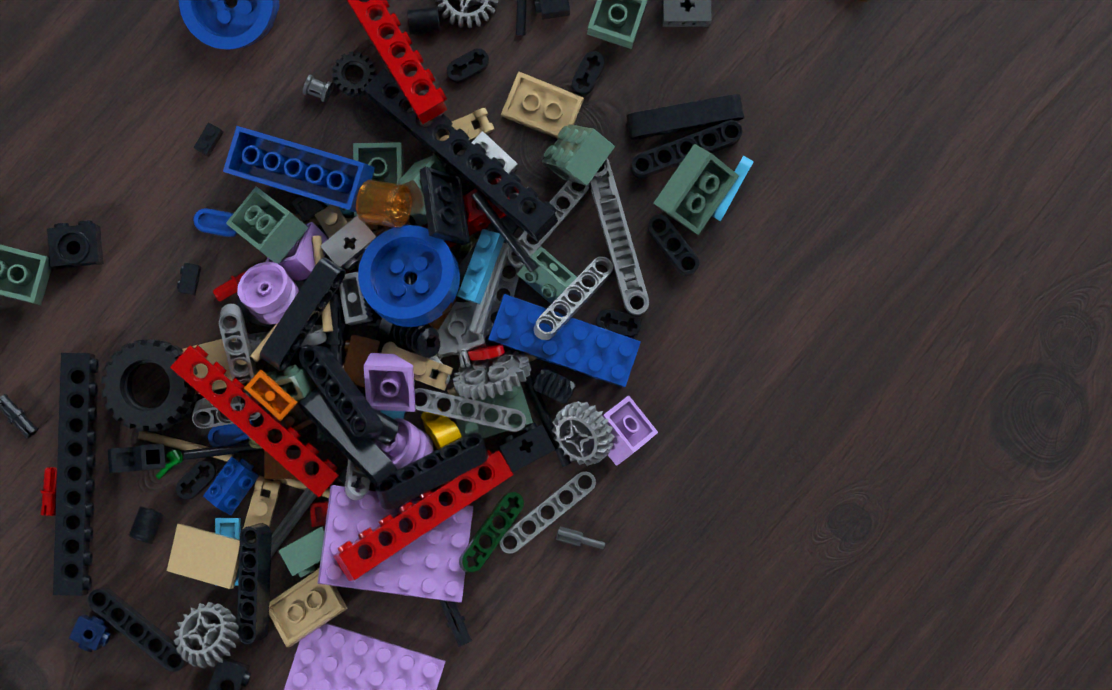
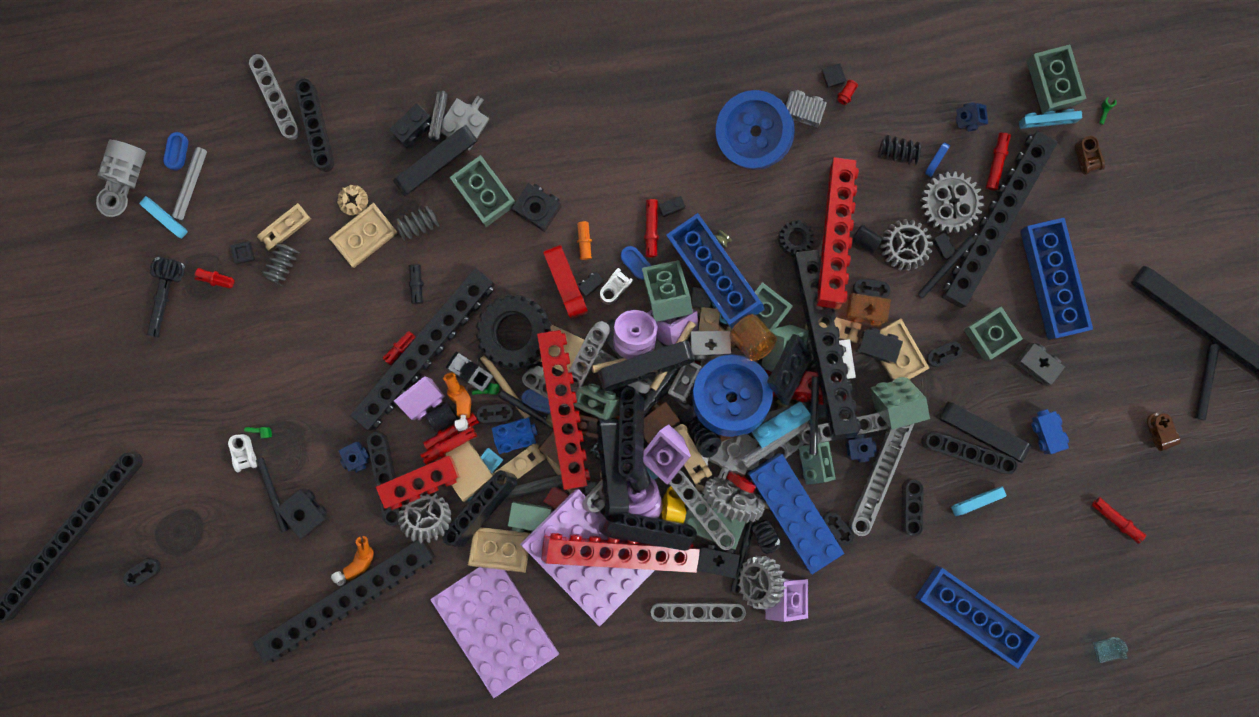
camera: 40 degrees right, 0 degrees up
(109, 524) = (420, 398): none -> lavender slope
(148, 636) = (388, 490): none -> red brick
(149, 241) = (584, 240): none -> orange axle
(149, 491) = (461, 398): none -> orange arm
(162, 296) = (565, 282): none -> red beam
(167, 532) = (448, 433): none -> red pin
(174, 546) = (441, 449): none -> red pin
(209, 182) = (651, 228): none -> red pin
(215, 258) = (617, 285): none -> white piece
(228, 288) = (613, 310): red axle -> none
(270, 395) = (585, 401): orange brick -> none
(283, 131) = (723, 238): none -> olive bush
(317, 88) = (765, 228): dark grey bush -> none
(462, 636) = (582, 647): black pin -> none
(486, 77) = (879, 307): none -> clear orange brick
(489, 530) = (652, 593): dark green beam -> none
(516, 114) = (879, 346): none -> black brick
(569, 306) = (817, 496): light grey beam -> none
(571, 234) = (854, 451): none -> dark blue brick
(576, 538) = (703, 643): dark grey axle -> none
(696, 189) = (957, 485): sand green brick -> none
(746, 67) = (1049, 432): none -> blue brick
(816, 299) = (977, 616): none -> blue brick
(880, 99) = (1126, 526): none -> red pin
(968, 229) = (1110, 649): none -> clear light blue bracket

